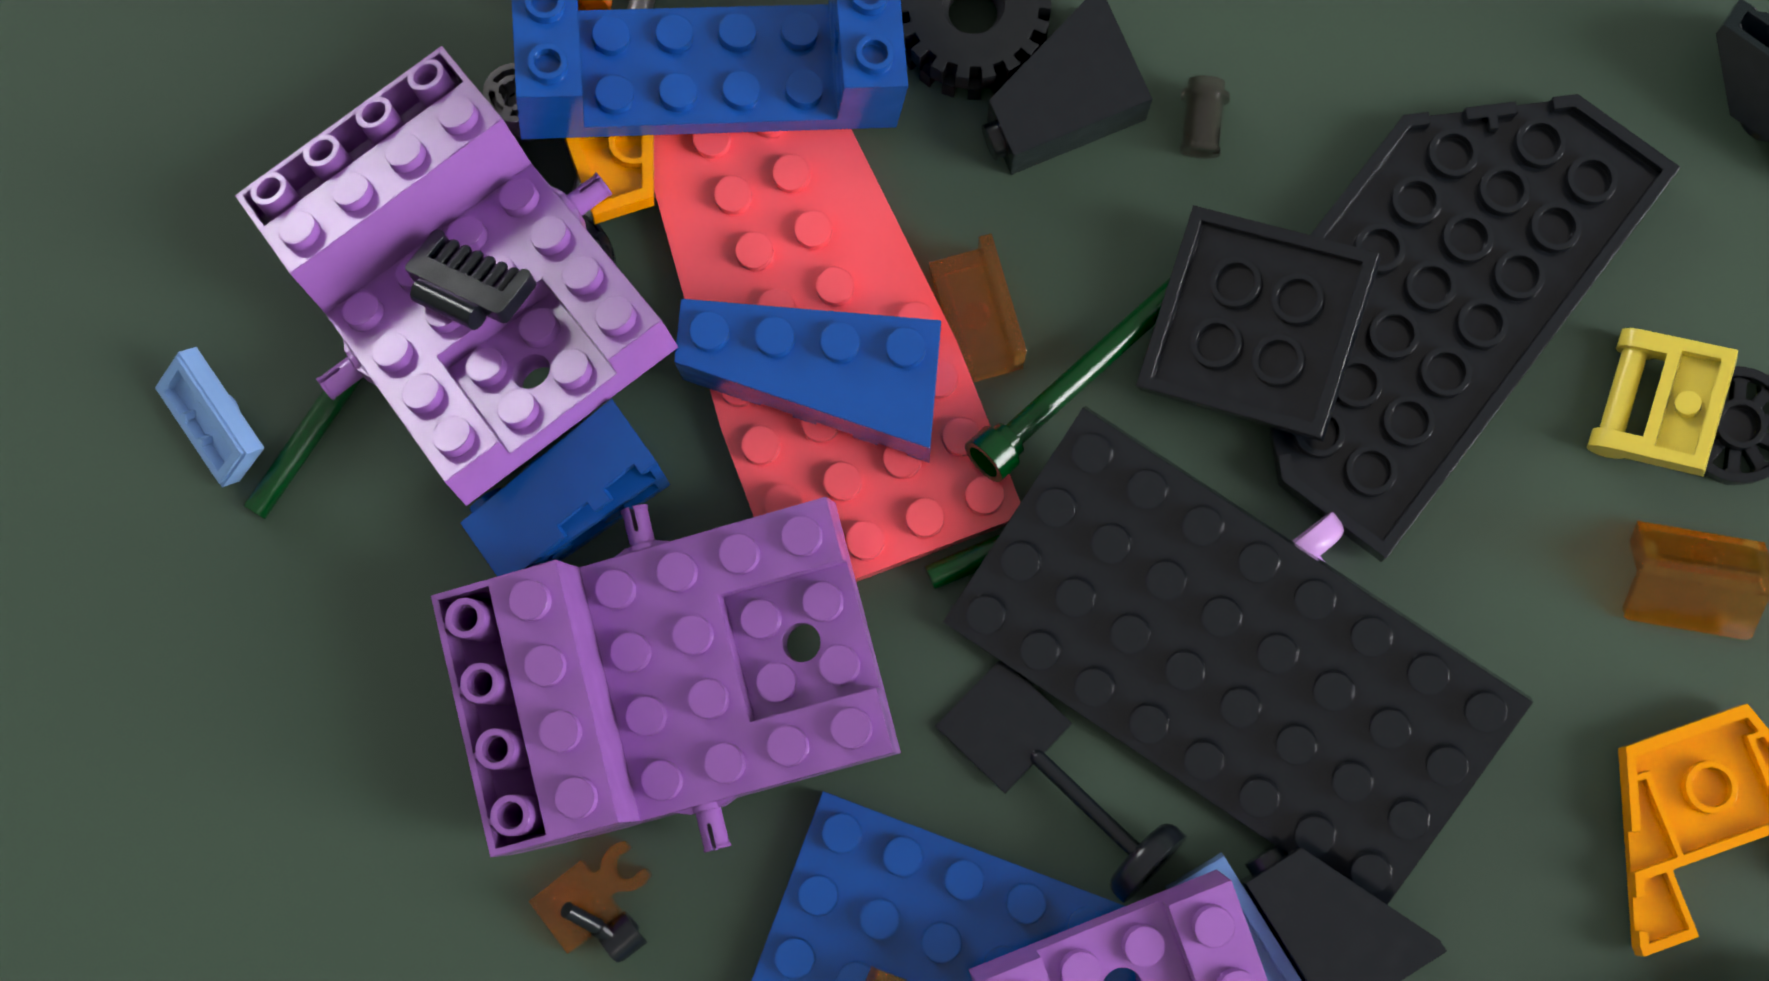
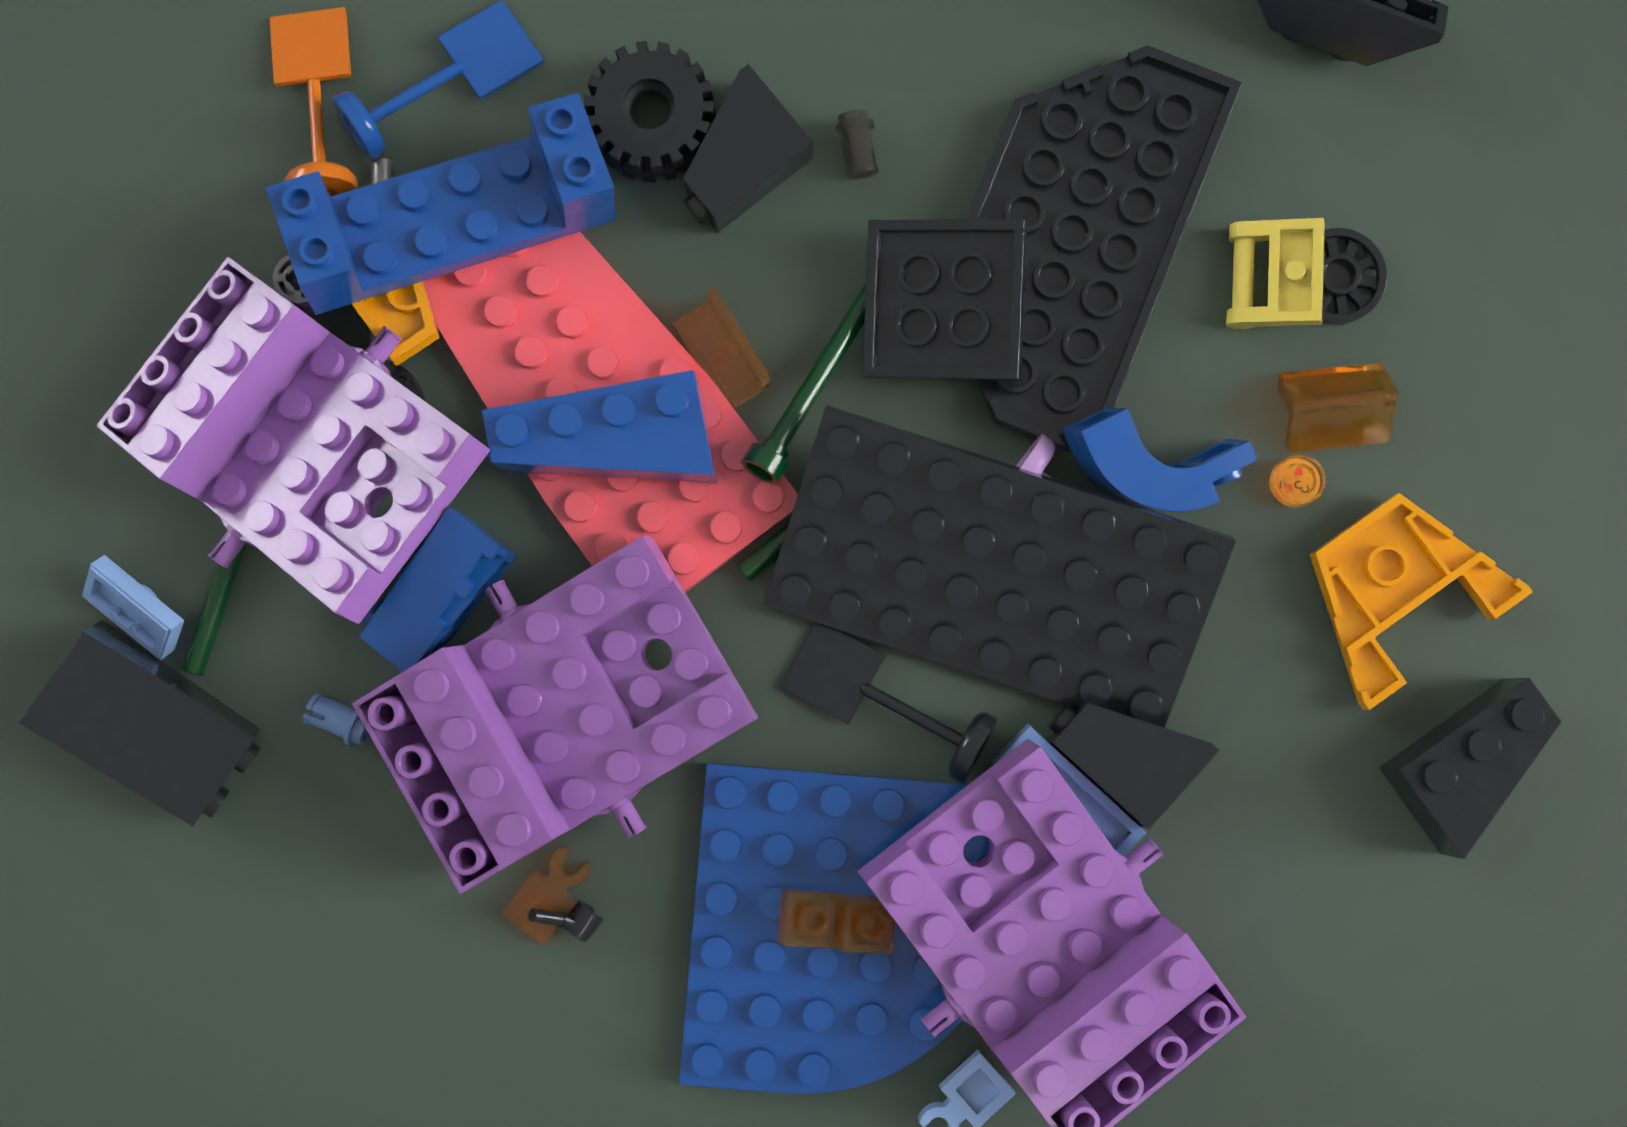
camera: 20 degrees left, 5 degrees up
(181, 555) = (143, 724): none -> black slope
(405, 615) = (336, 719): none -> medium blue pin
(465, 283) = (304, 447): black piece -> none
(1416, 575) = (1119, 464): none -> blue arch
(1626, 655) = (1297, 480): none -> clear orange tile

